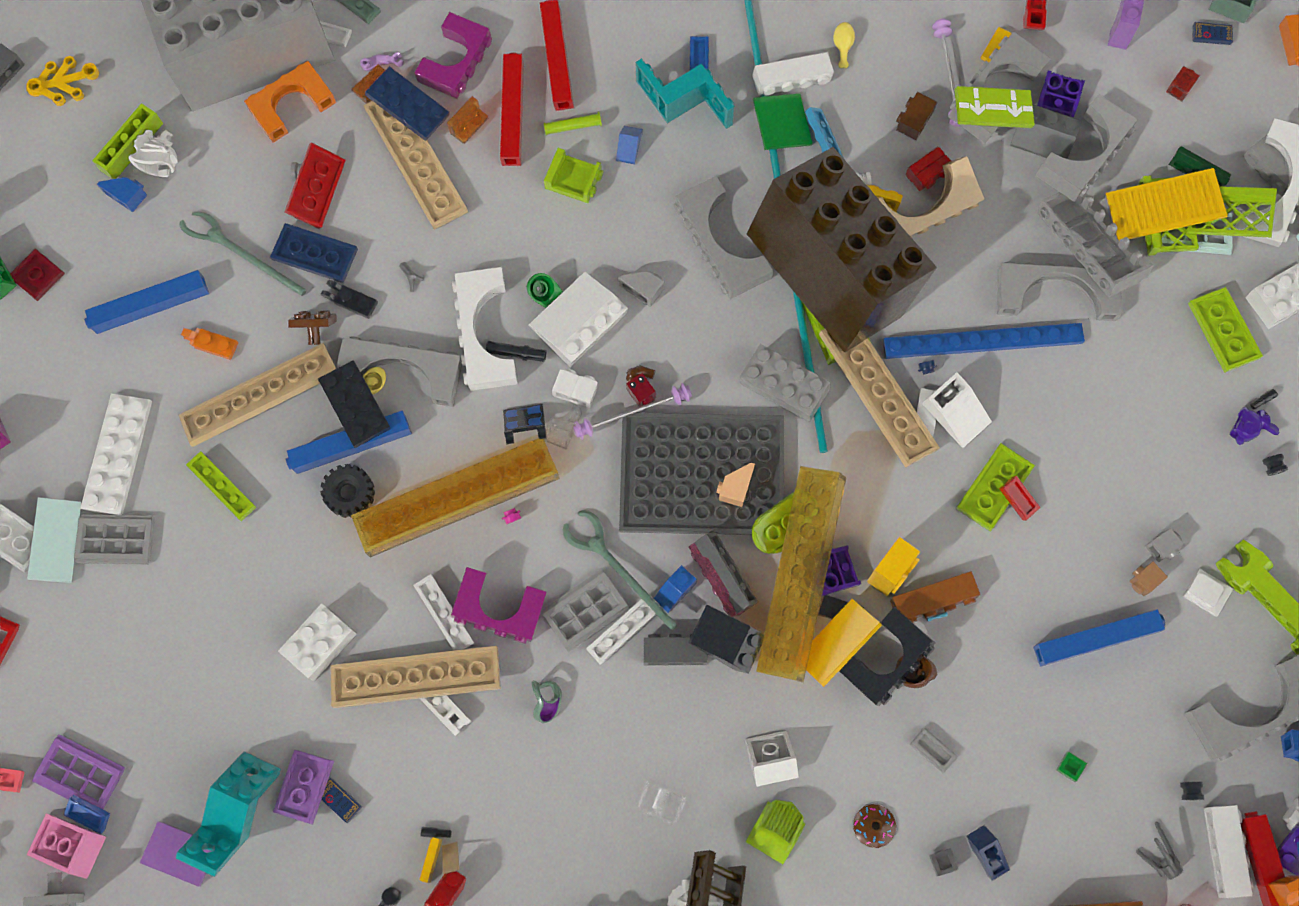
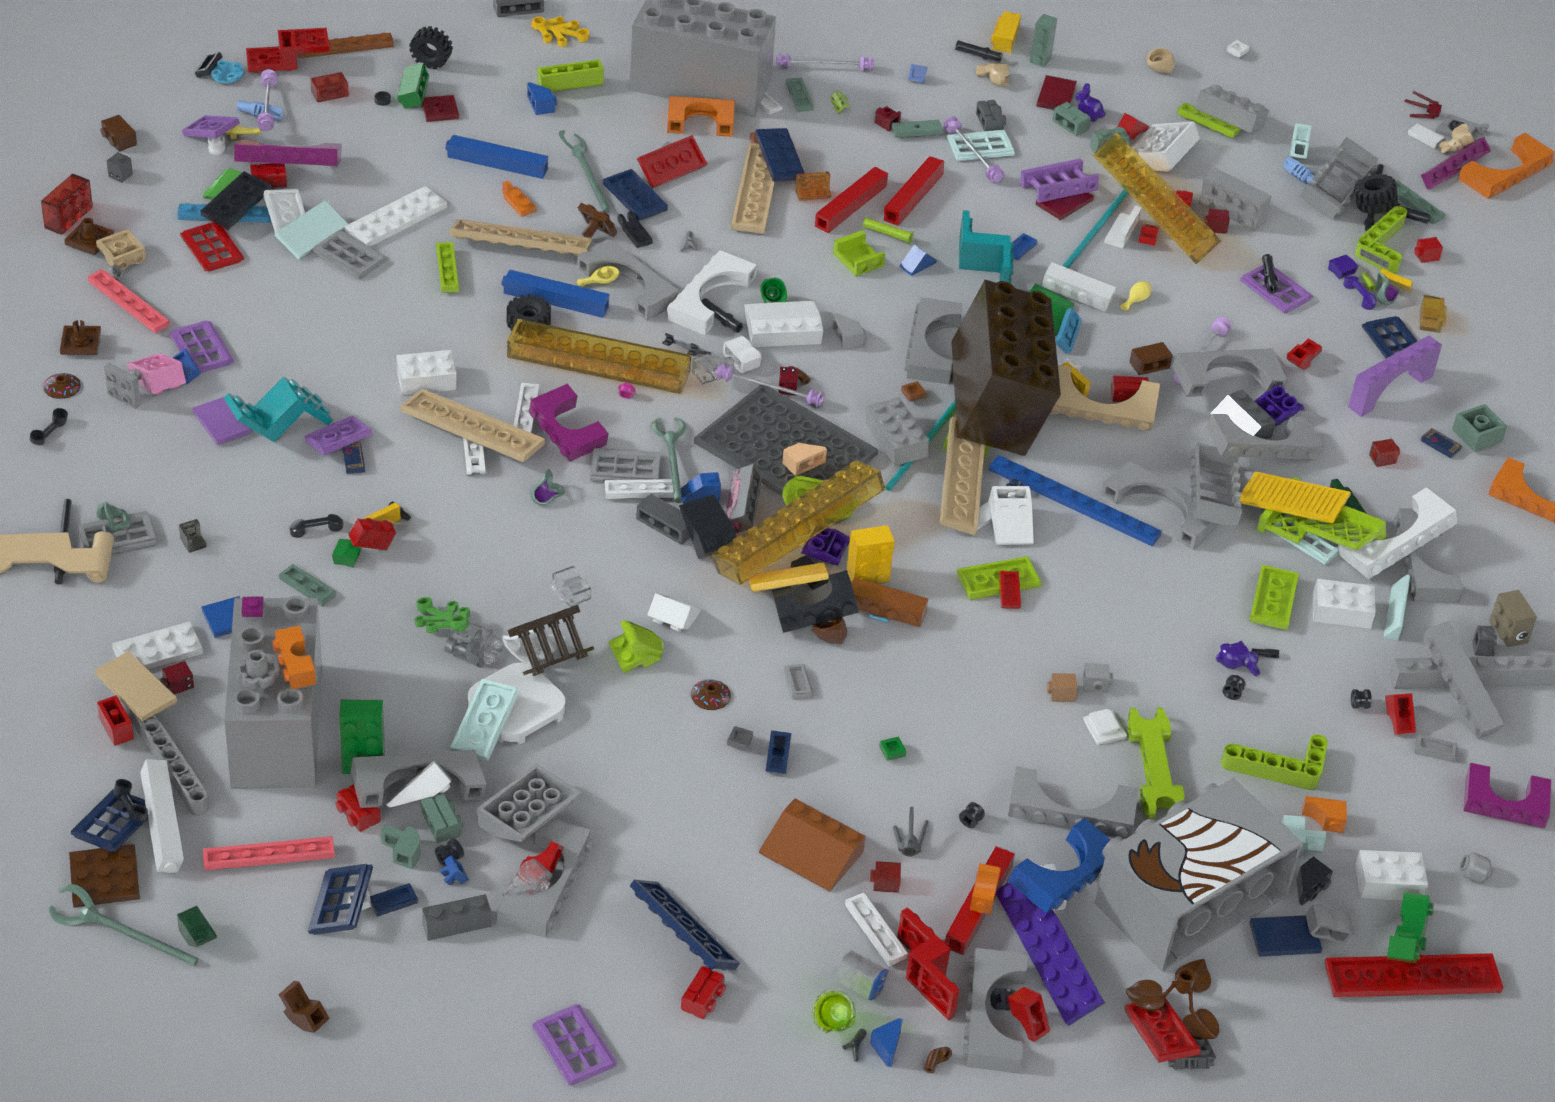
camera: 30 degrees right, 30 degrees down
(154, 152) = (580, 89): white helmet -> none
(354, 404) = (580, 271): black plate -> none
(369, 63) = (797, 135): lavender arm -> none
(453, 79) = (861, 148): magenta arch -> none
(754, 315) = (913, 391): none -> dark orange plate
(994, 107) = (1209, 370): lime tile -> none
(1099, 637) = (990, 695): blue brick -> none
(1228, 851) = (964, 863): white brick -> none

